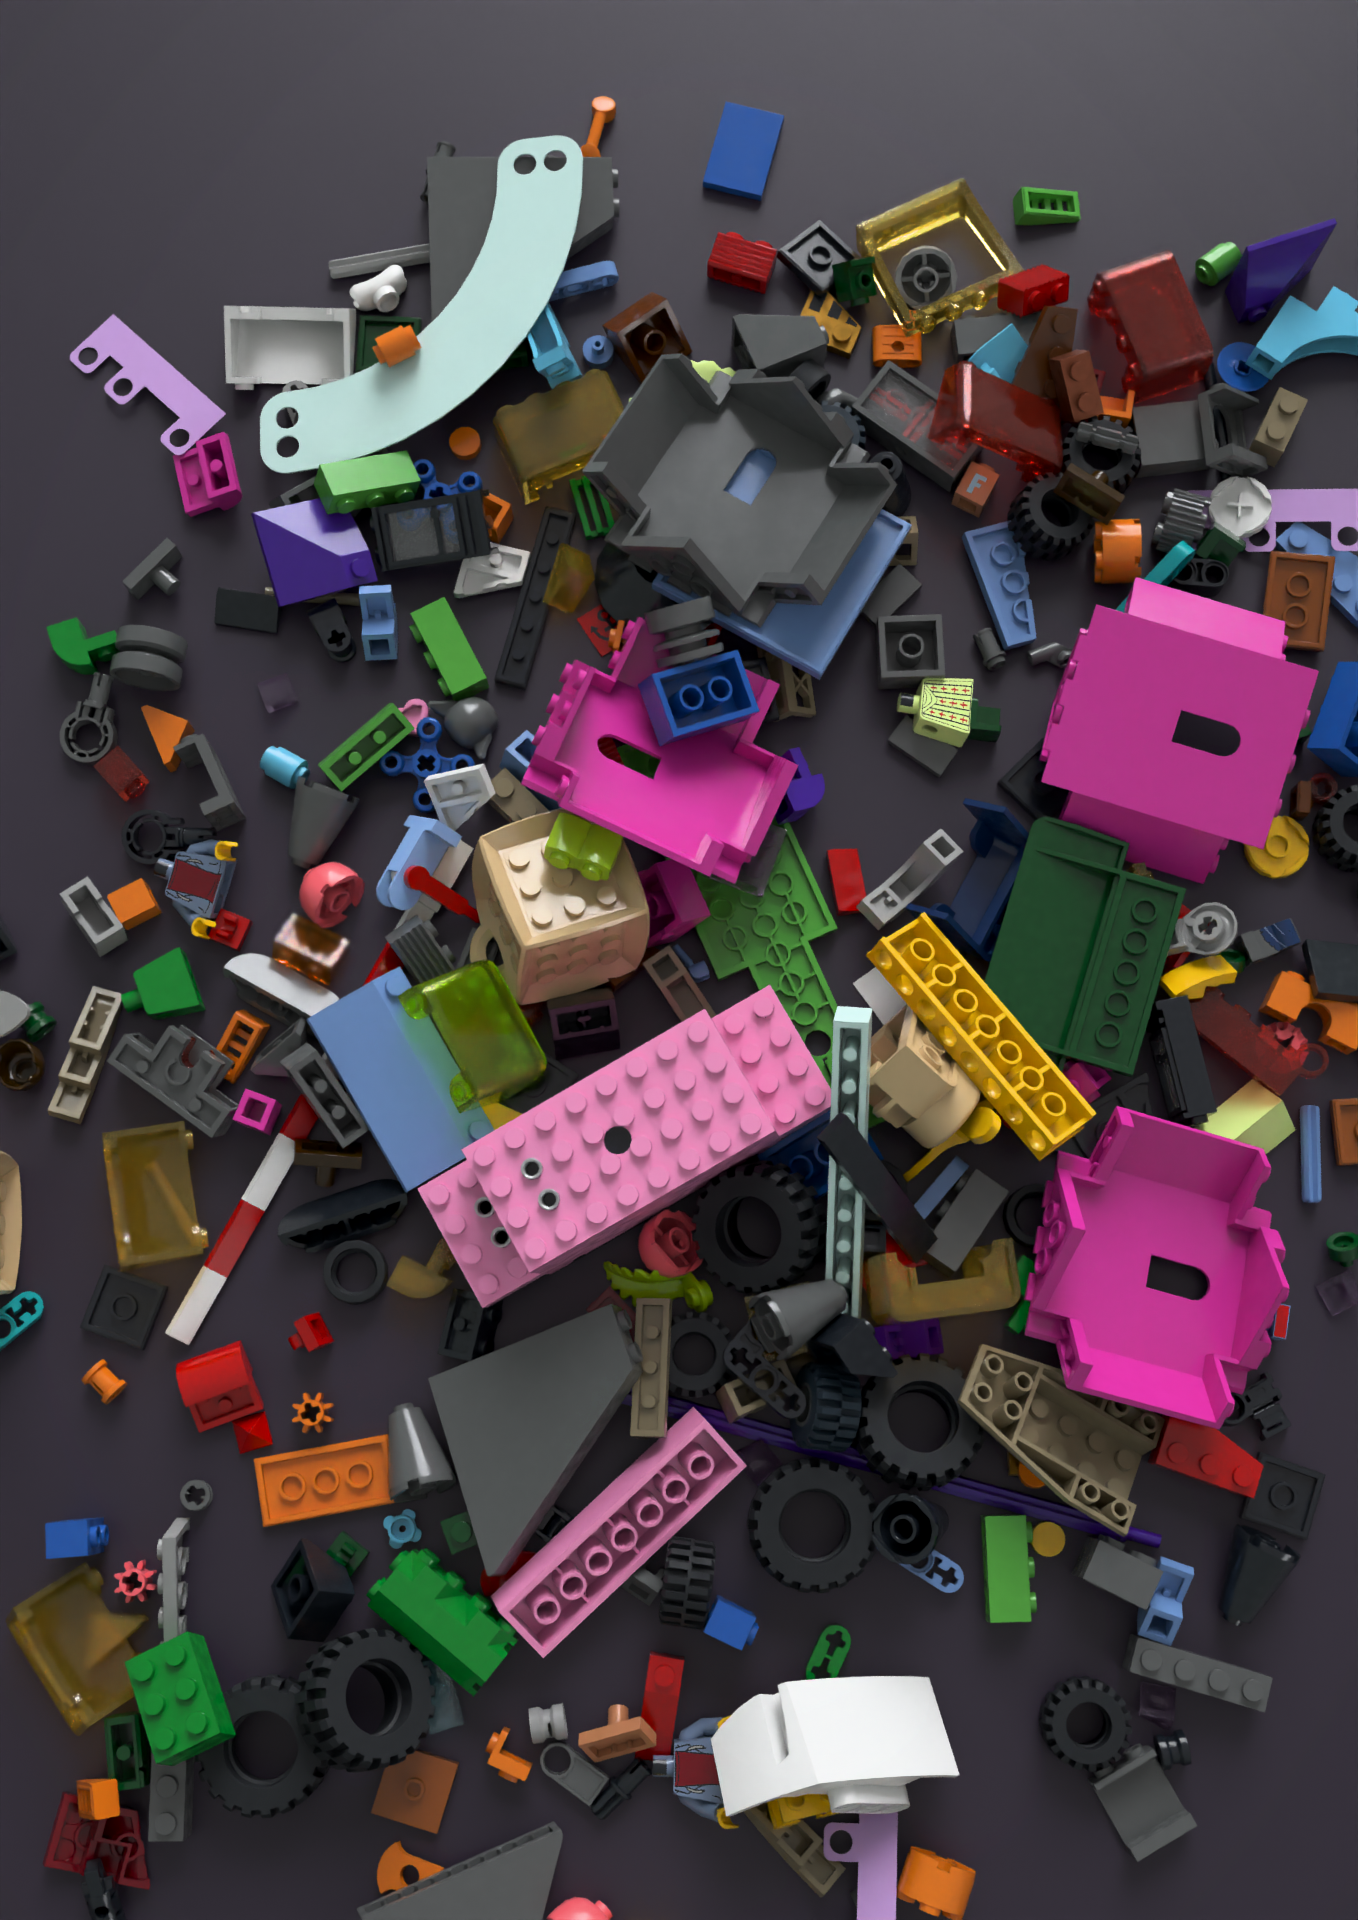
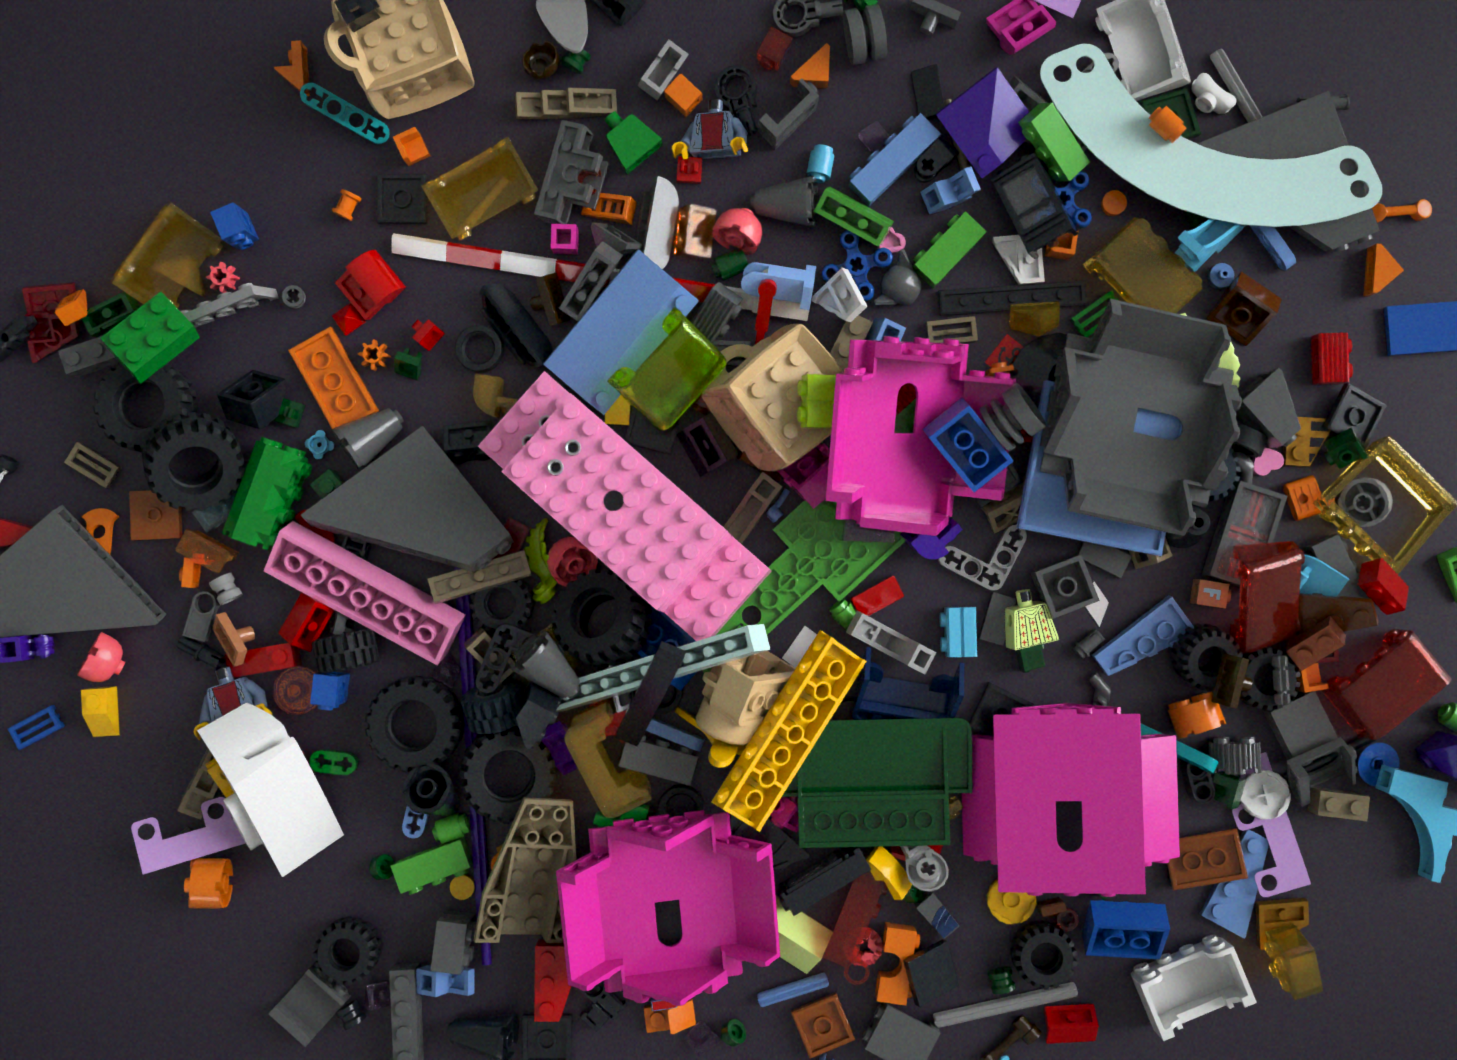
camera: 75 degrees right, 10 degrees up
(63, 1269) = (411, 146): none -> orange panel
(314, 677) = (894, 159): none -> medium blue brick
(341, 1833) = (111, 475): none -> dark tan tile
(342, 1372) = (408, 365): none -> dark green tile
(367, 919) = (729, 264): none -> dark green brick
(488, 1732) = (205, 550): none -> clear orange bracket
(556, 655) = (973, 329): none -> dark tan tile
(629, 1625) = (305, 622): none -> red brick
(656, 174) = (1379, 270): none -> orange slope
(716, 1673) = (294, 690): none -> clear pink tile
(840, 369) = (1268, 461): none -> bright pink tile
(854, 928) = (842, 613): none -> bright green cone
(855, 729) = (993, 565): none -> light grey beam
(923, 796) = (959, 632): none -> medium azure brick
(952, 625) = (1098, 608): none -> white sticker
(966, 1526) = (451, 828): none -> bright green brick
(988, 1638) = (380, 867): none -> dark green tile
(1303, 1319) = (670, 1019): none -> orange slope

